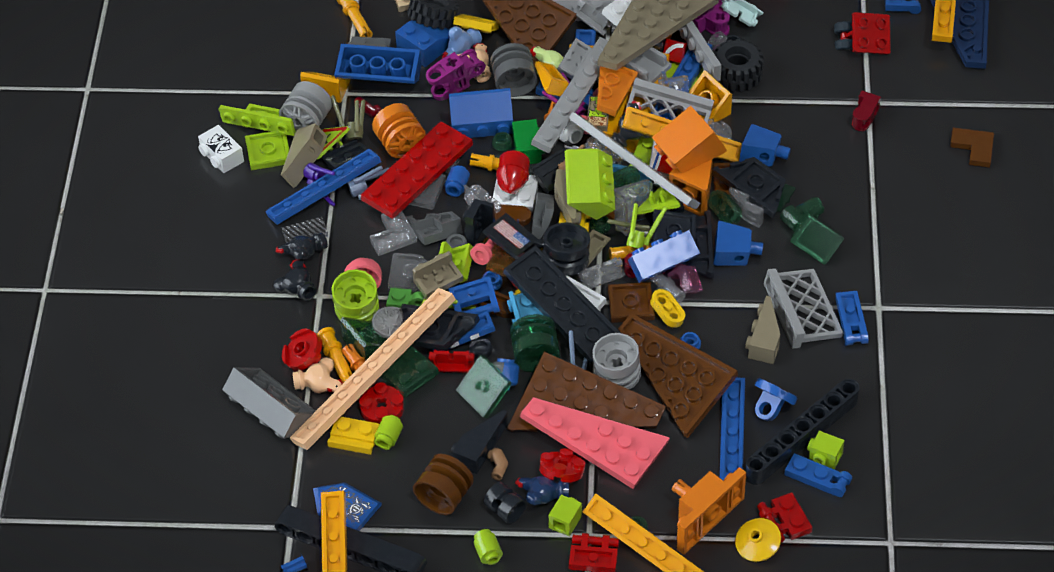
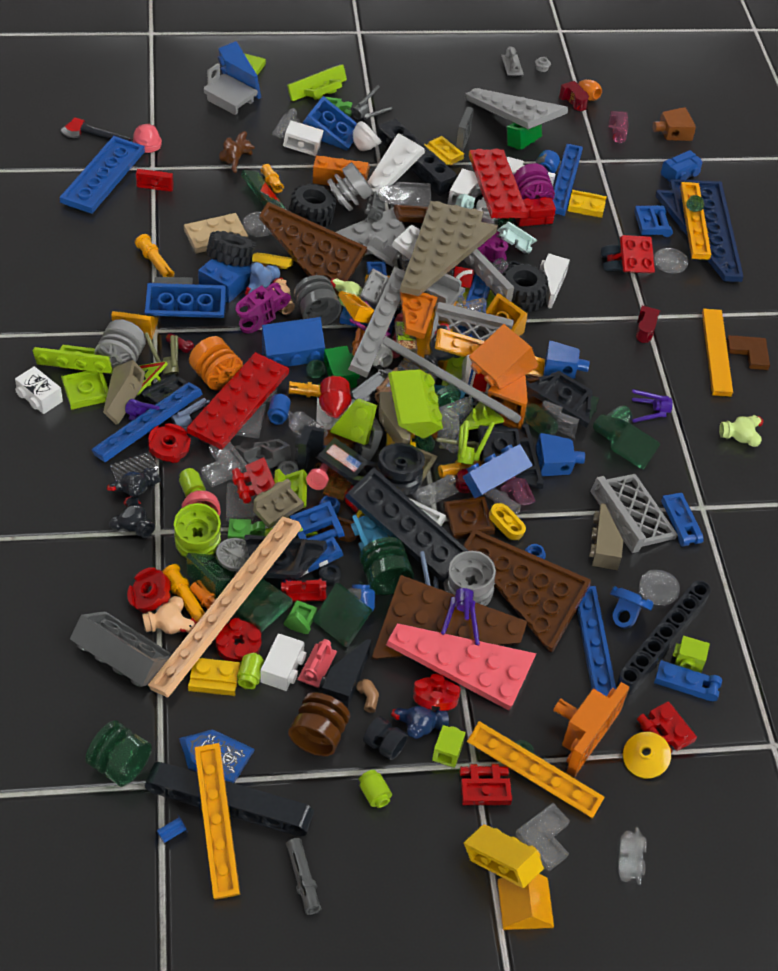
camera: 15 degrees left, 0 degrees up
(253, 494) = (118, 753): none -> clear green wheel
(338, 218) = (166, 452): none -> red plate
(357, 248) = (190, 481): none -> lime brick
(420, 426) = (282, 662): none -> white brick
(425, 247) = (258, 474): none -> red plate
(445, 386) = (300, 617): none -> bright green tile
(453, 430) = (317, 663): none -> coral hinge
(530, 198) = (356, 422): none -> lime wing
(601, 382) = (464, 602): none -> dark purple plant
(776, 50) = (556, 270): none -> white slope
(811, 383) = (659, 587): none -> clear wheel
(859, 198) = (660, 403): none -> dark purple plant
(911, 41) = (670, 260): none -> clear wheel
(936, 145) = (717, 353): none -> light orange tile
(941, 229) = (742, 430): none -> yellowish green animal

